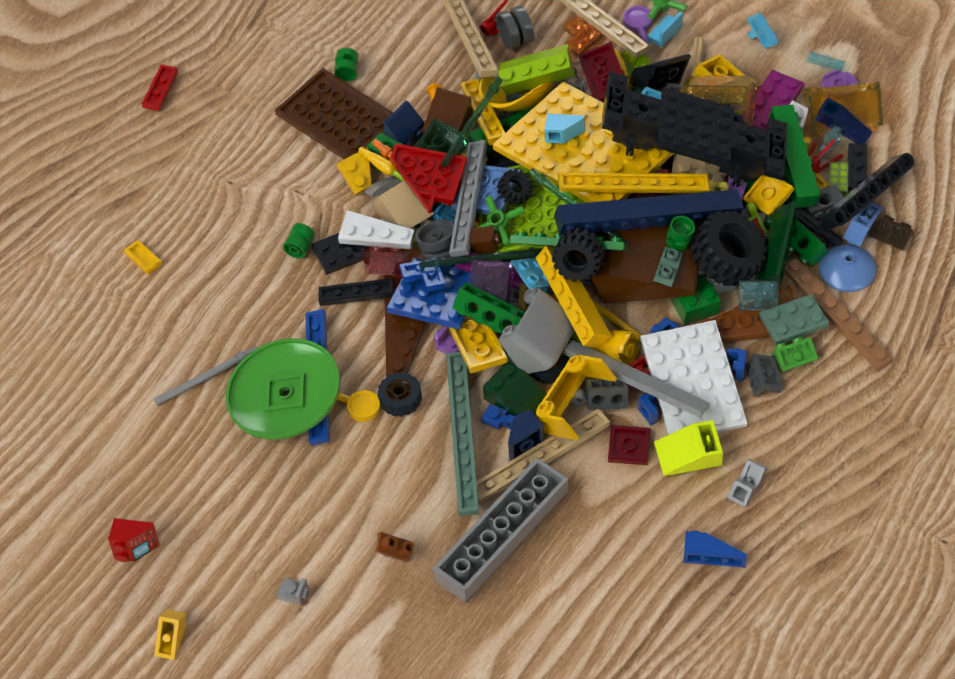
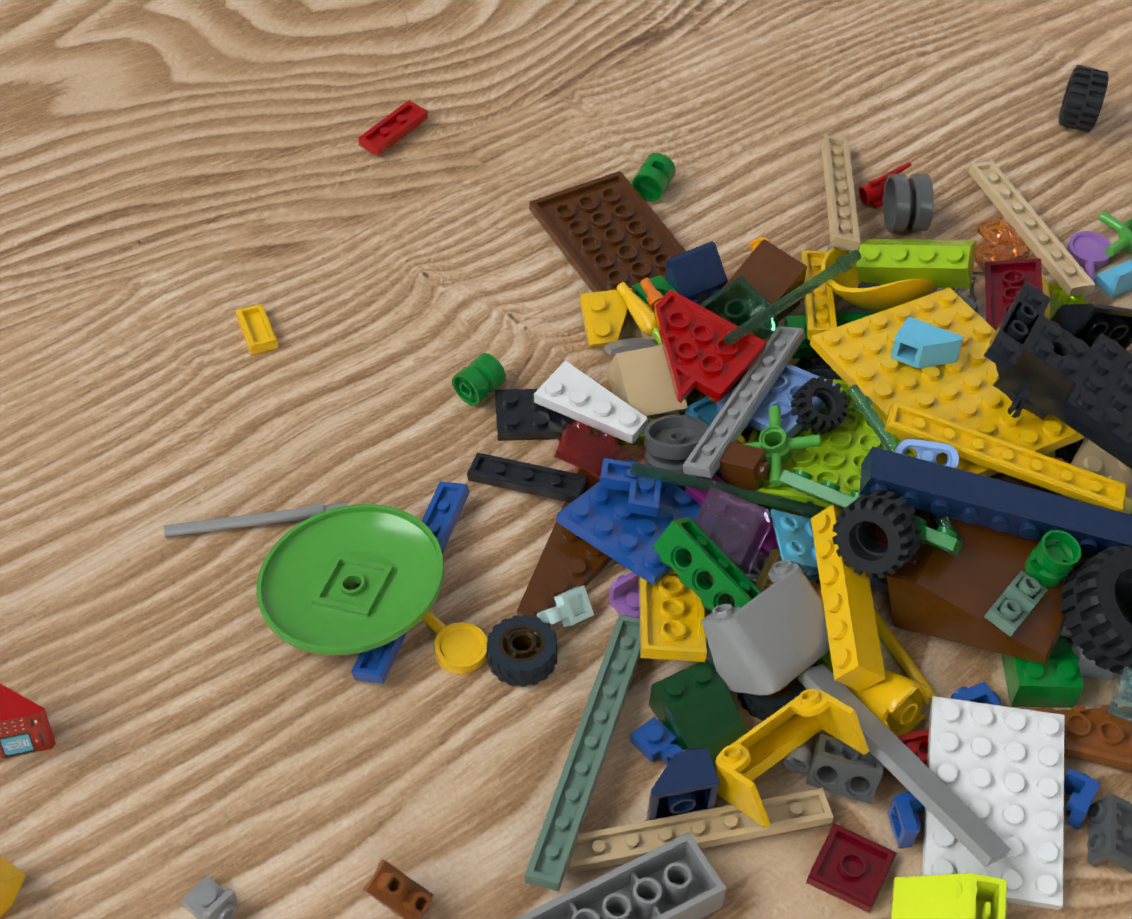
camera: 15 degrees right, 5 degrees down
(417, 360) = (571, 608): none -> light aqua plate
(589, 195) = (929, 450): none -> light blue plate

